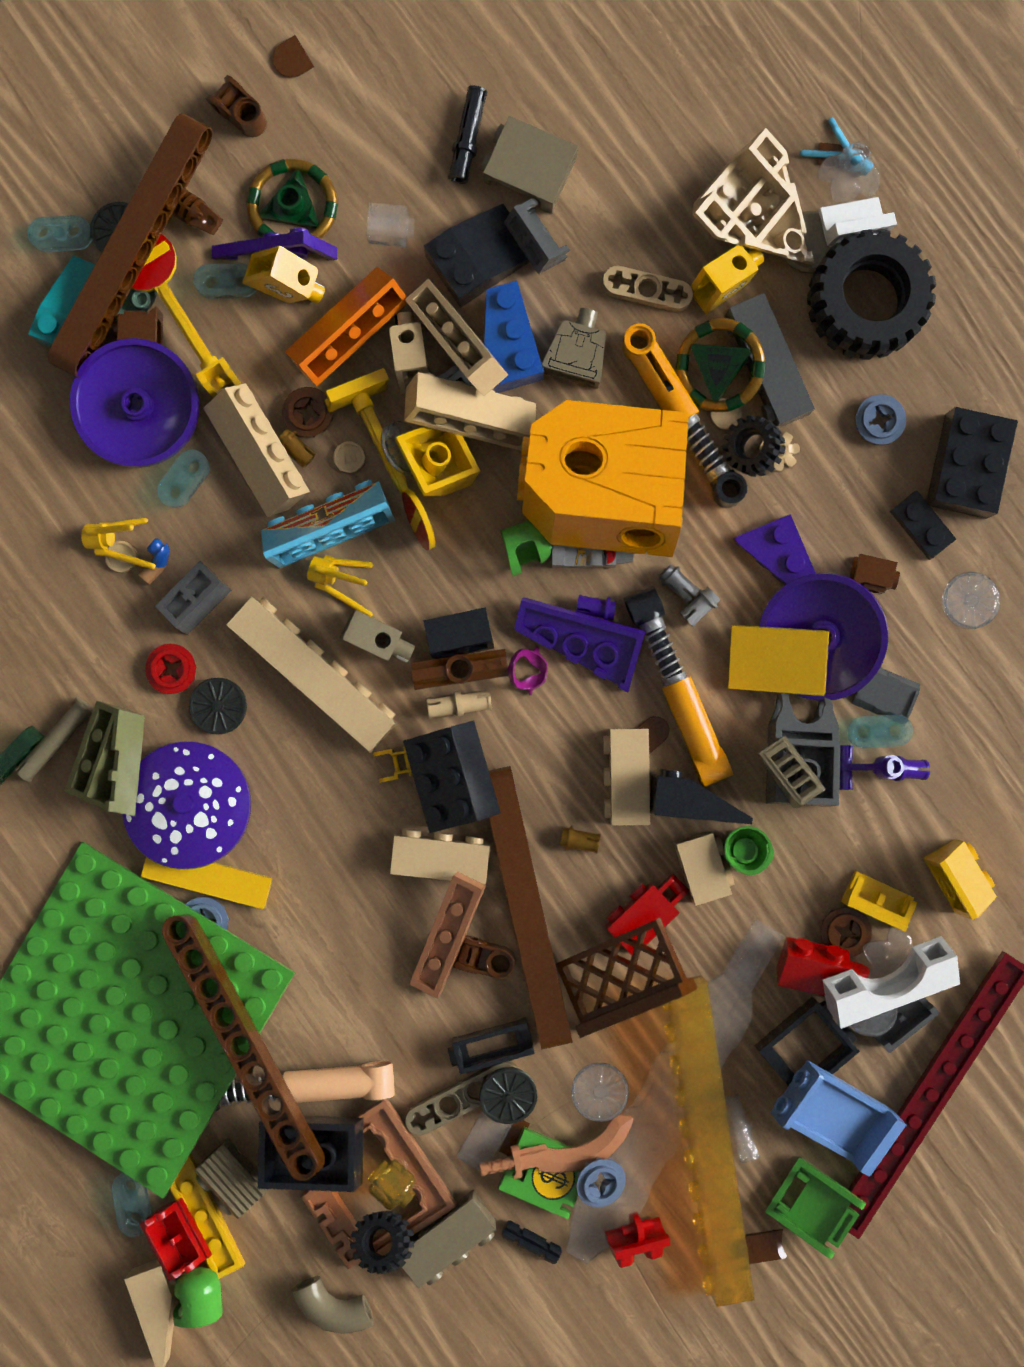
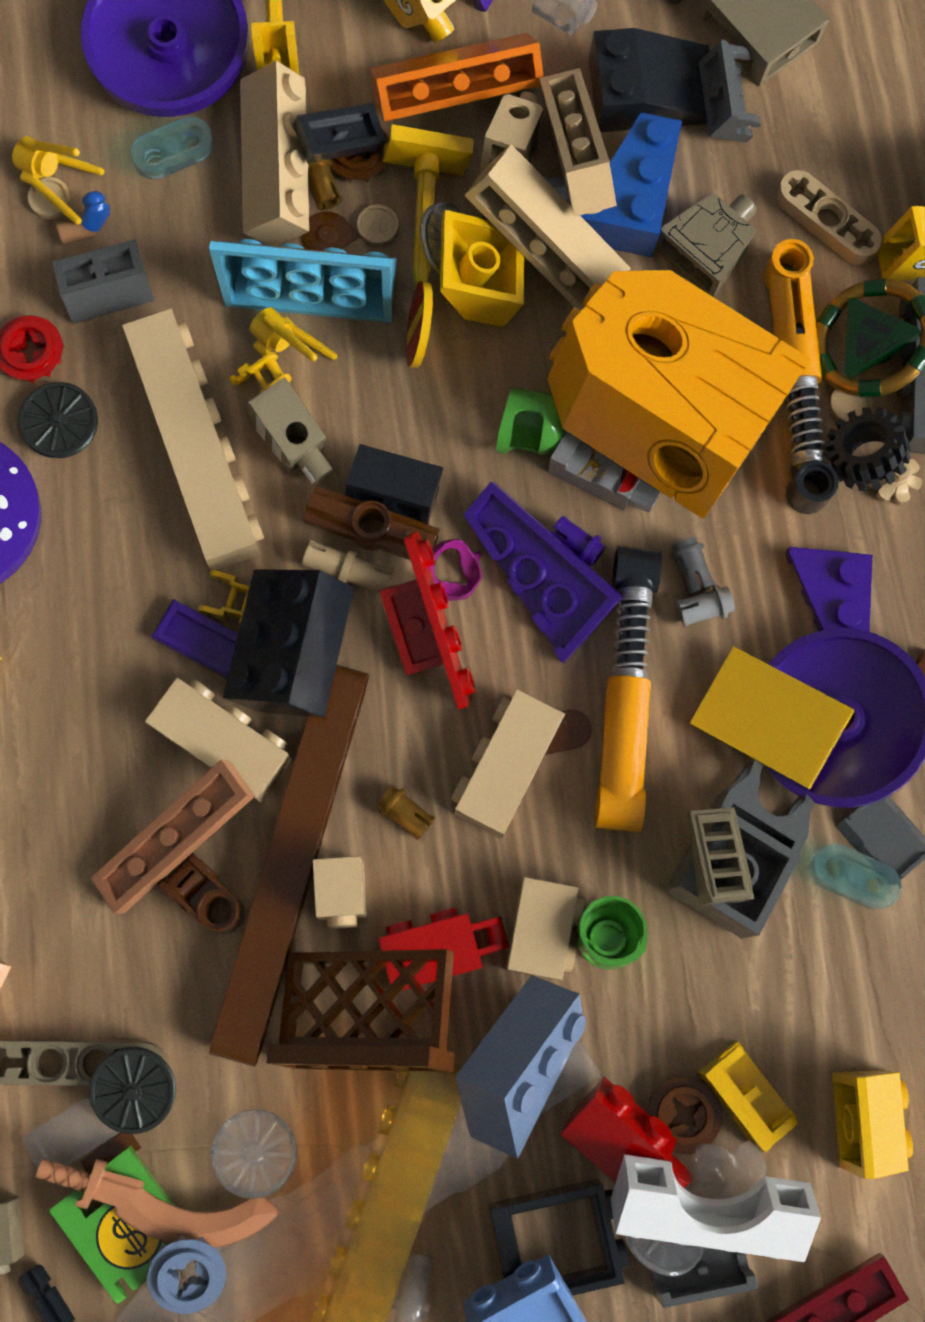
camera: 20 degrees right, 10 degrees down
(293, 414) = (339, 132): none -> black plate
(320, 481) = (327, 231): none -> reddish brown piece
(326, 604) = (266, 361): none -> yellow piece
(389, 800) = (196, 638): none -> dark purple tile
(459, 1053) = (103, 1001): black window -> none
(527, 719) = (420, 623): none -> red bracket
(568, 914) = (339, 891): none -> tan brick
(684, 798) = (570, 828): black slope -> none
(732, 957) = (519, 1064): none -> sand blue wedge
(883, 767) = (840, 922): dark purple pin -> none

